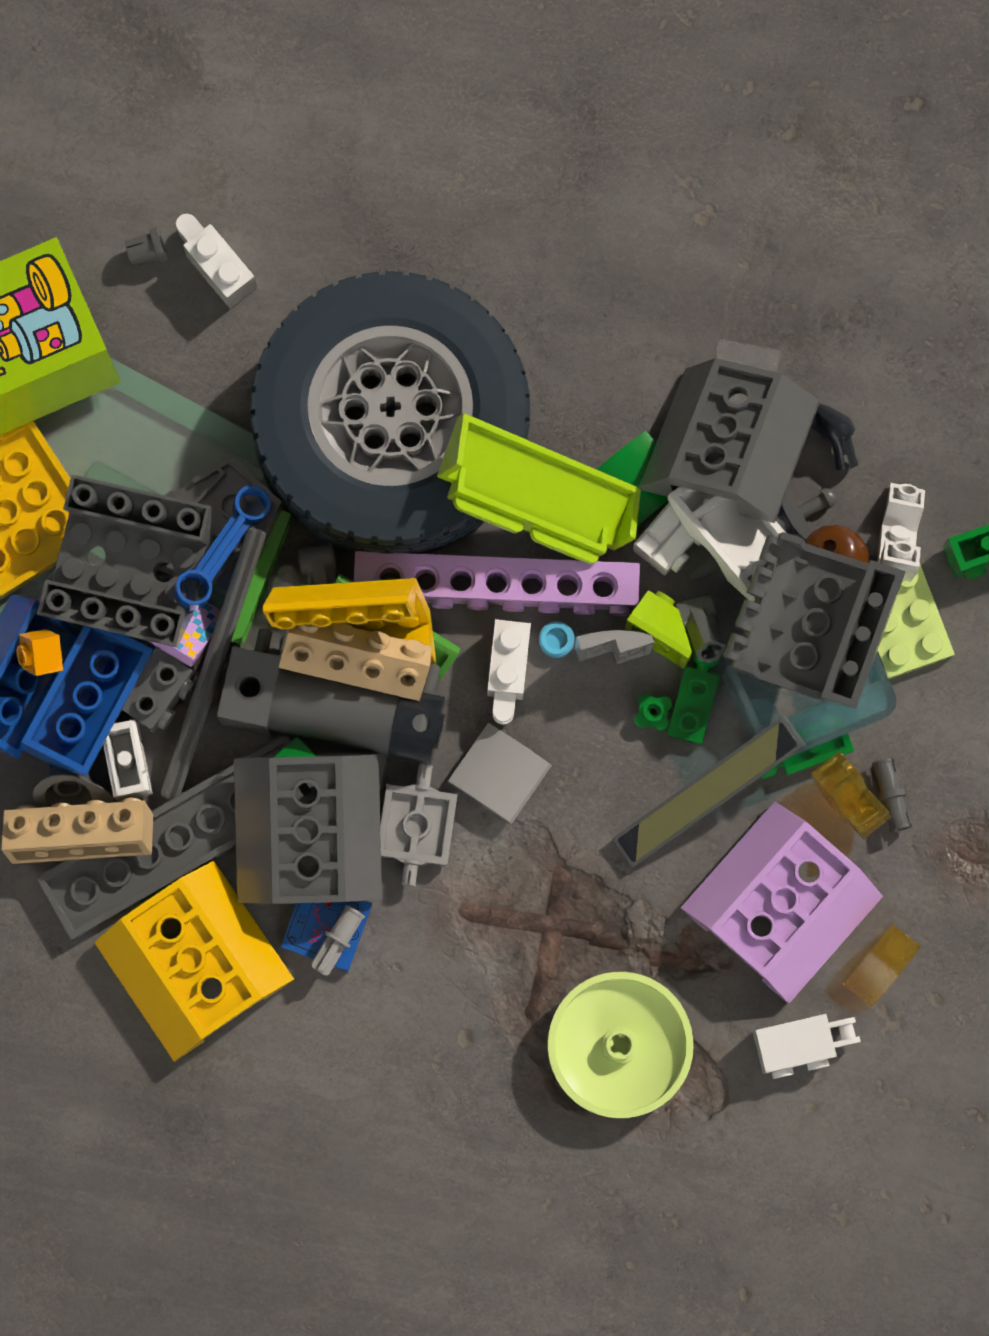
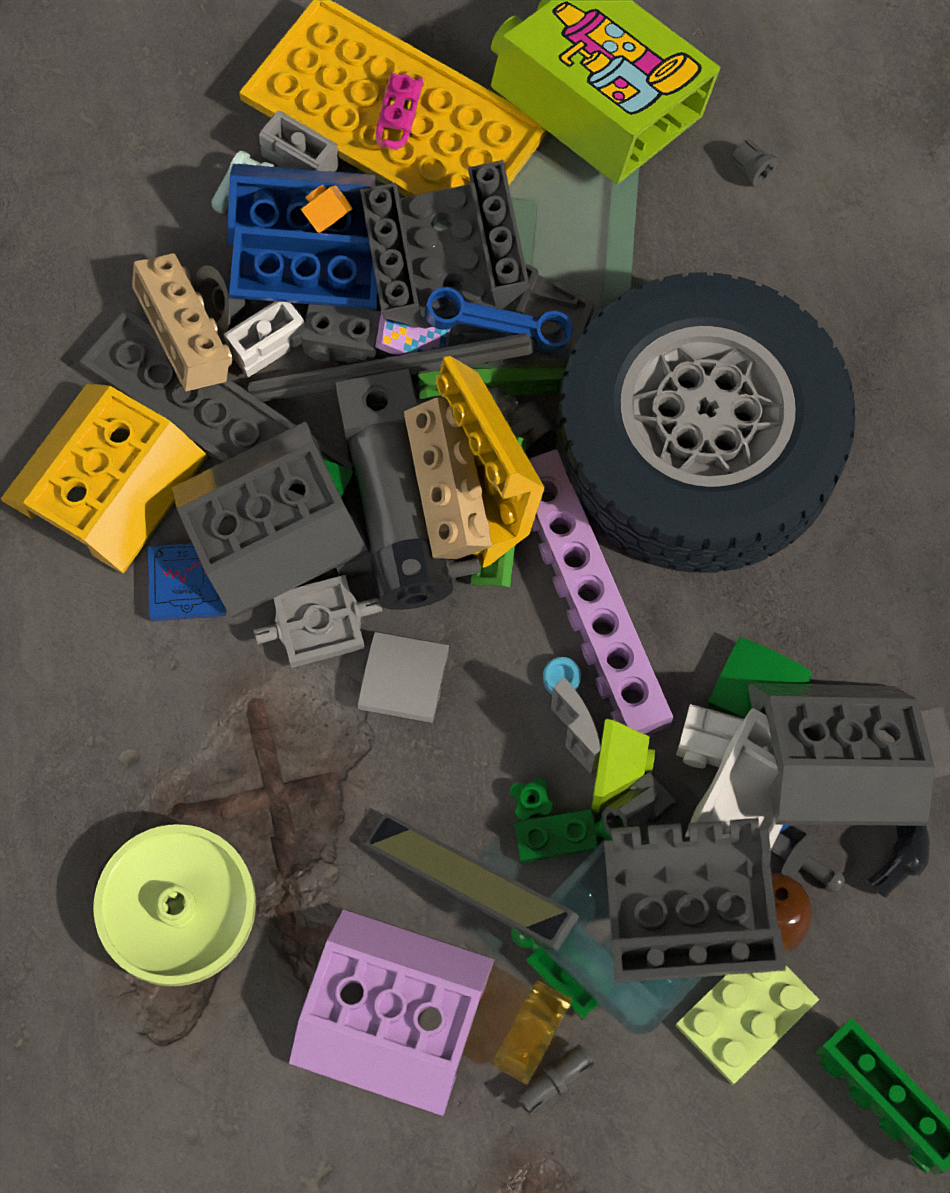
camera: 70 degrees right, 10 degrees down
(215, 260) = (772, 221): white brick -> none
(337, 940) = (172, 591): light grey axle -> none
(508, 667) = (510, 639): white brick -> none
(537, 491) = (693, 575): lime slope -> none
(801, 1043) = (251, 1093): white brick -> none
(882, 964) = (369, 1145): clear yellow slope -> none
(900, 528) = (834, 970): white slope -> none

